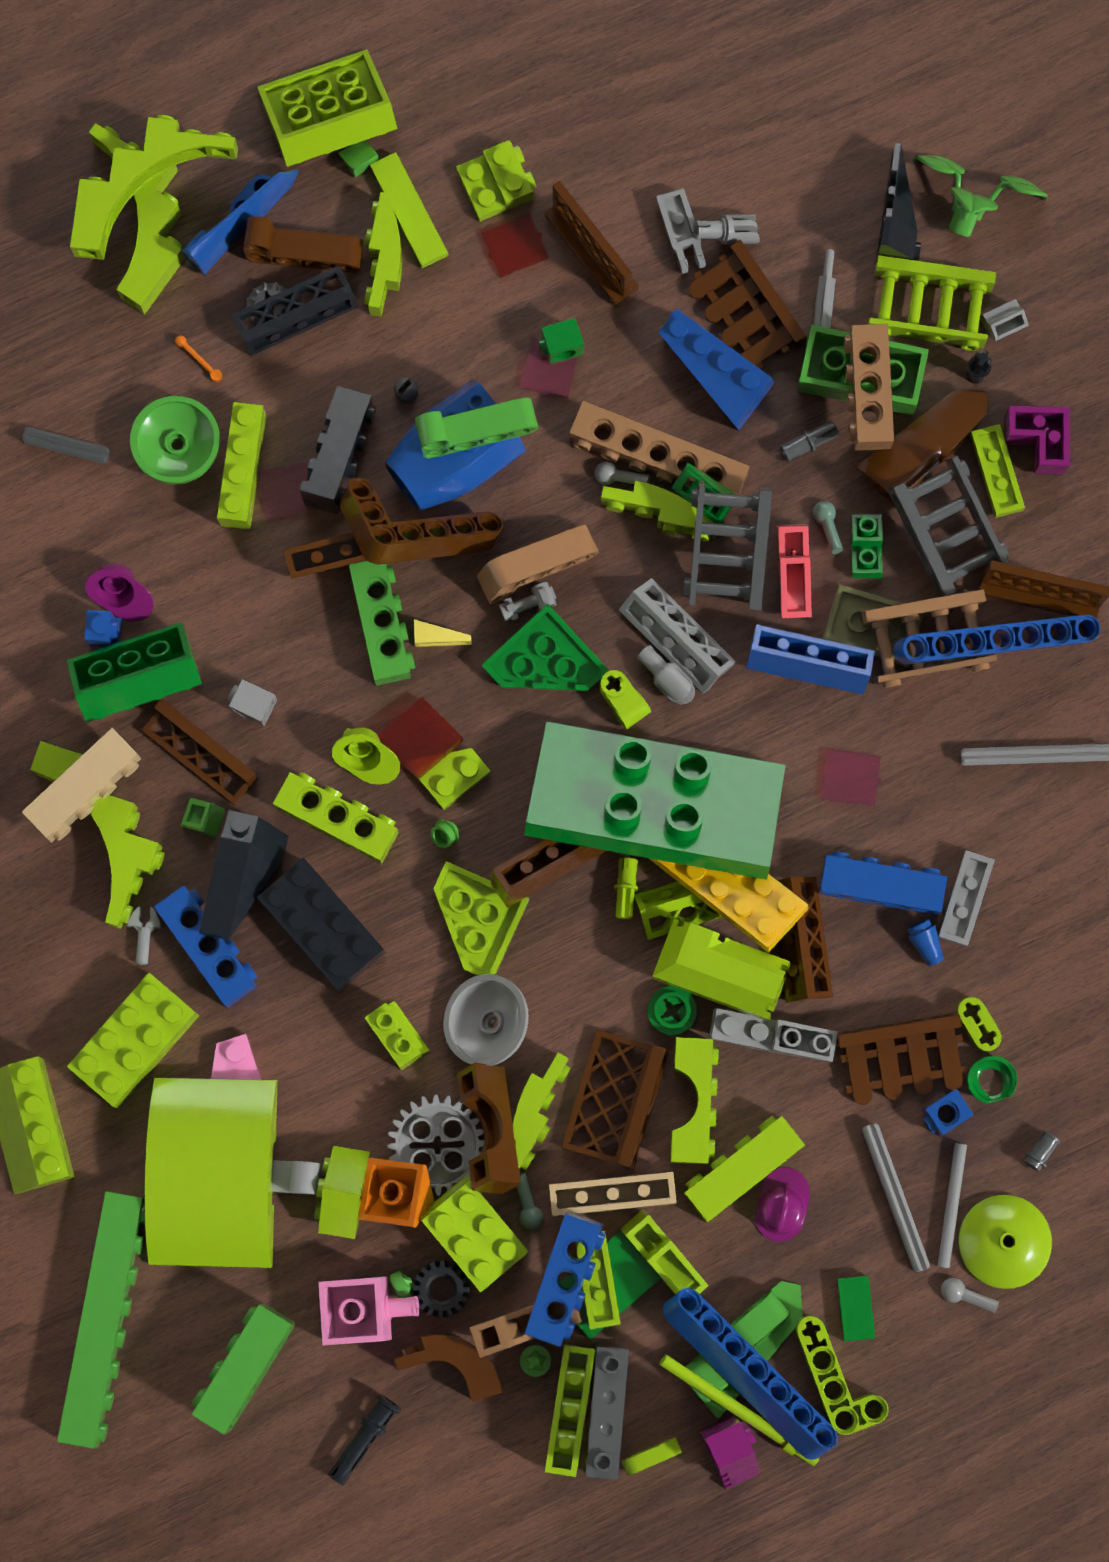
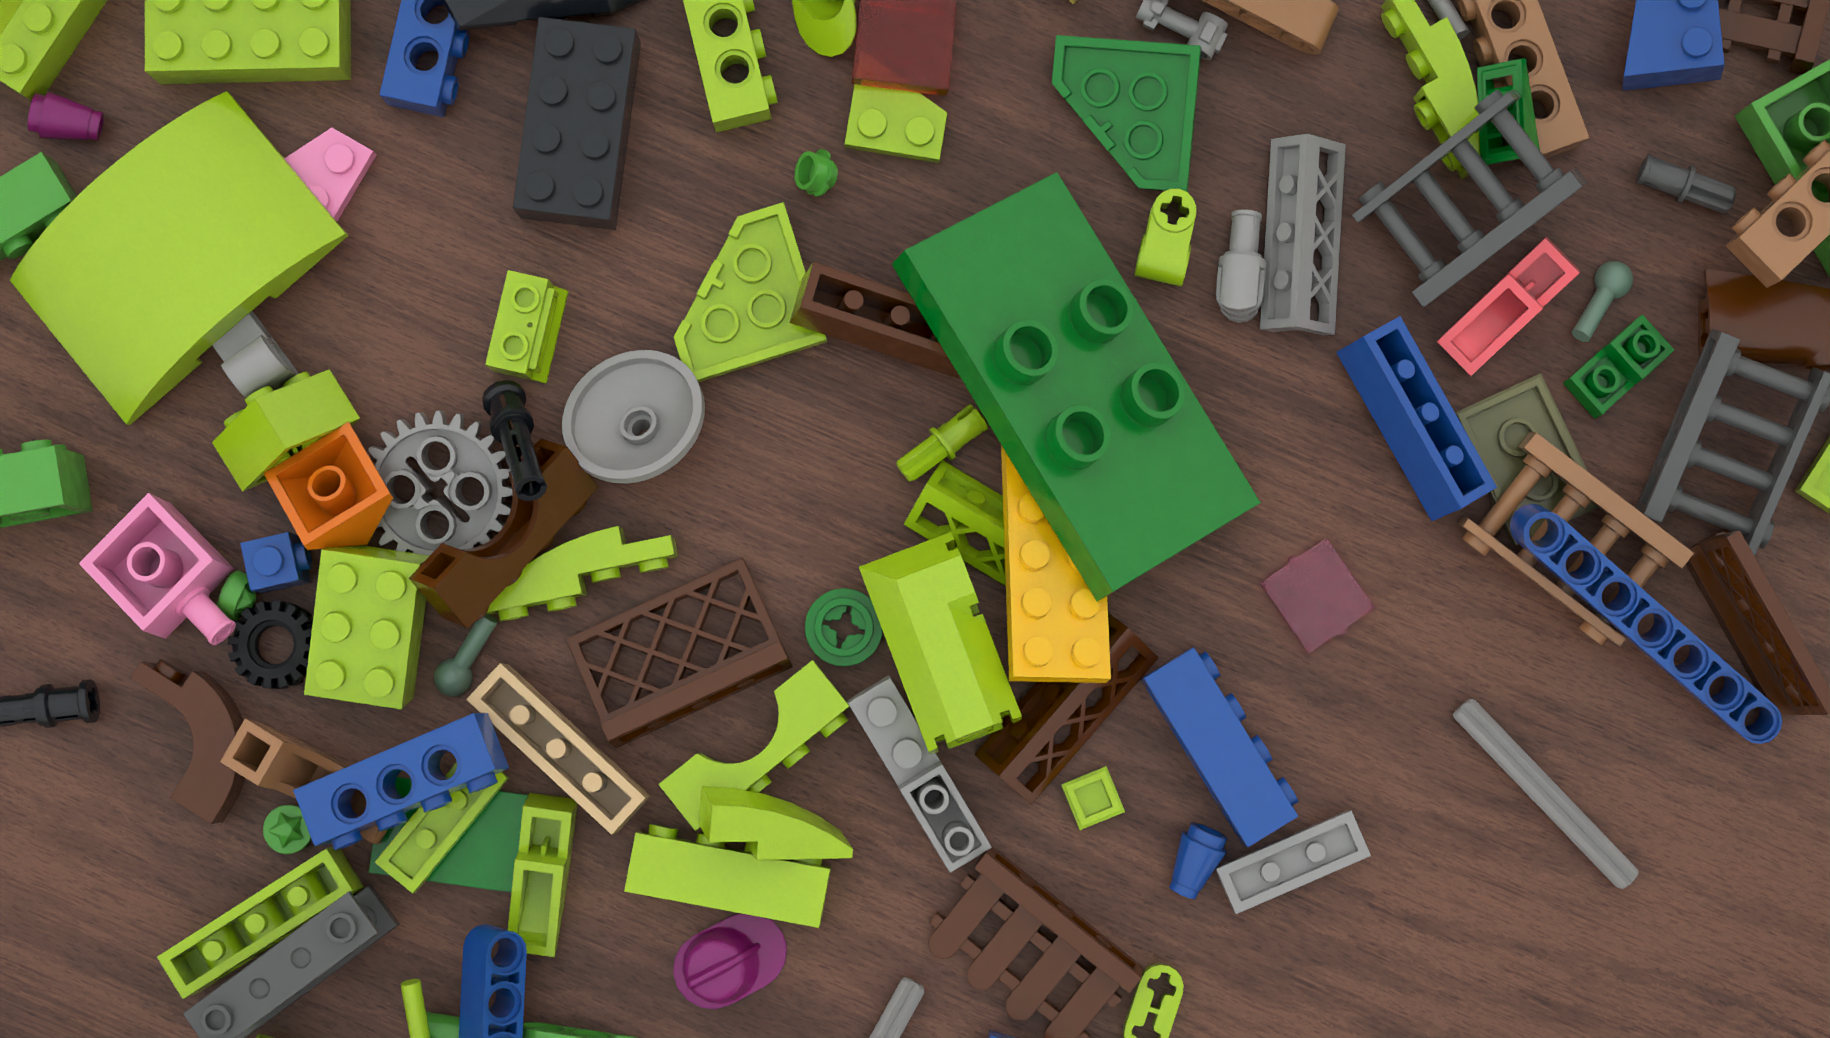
camera: 50 degrees right, 5 degrees up
(95, 1168) = (63, 119): none -> magenta cone
(403, 1251) = (276, 562): none -> blue brick
(473, 1091) = (527, 473): none -> black pin
(736, 1127) = (768, 826): none -> lime slope
(855, 965) = (1092, 798): none -> lime tile

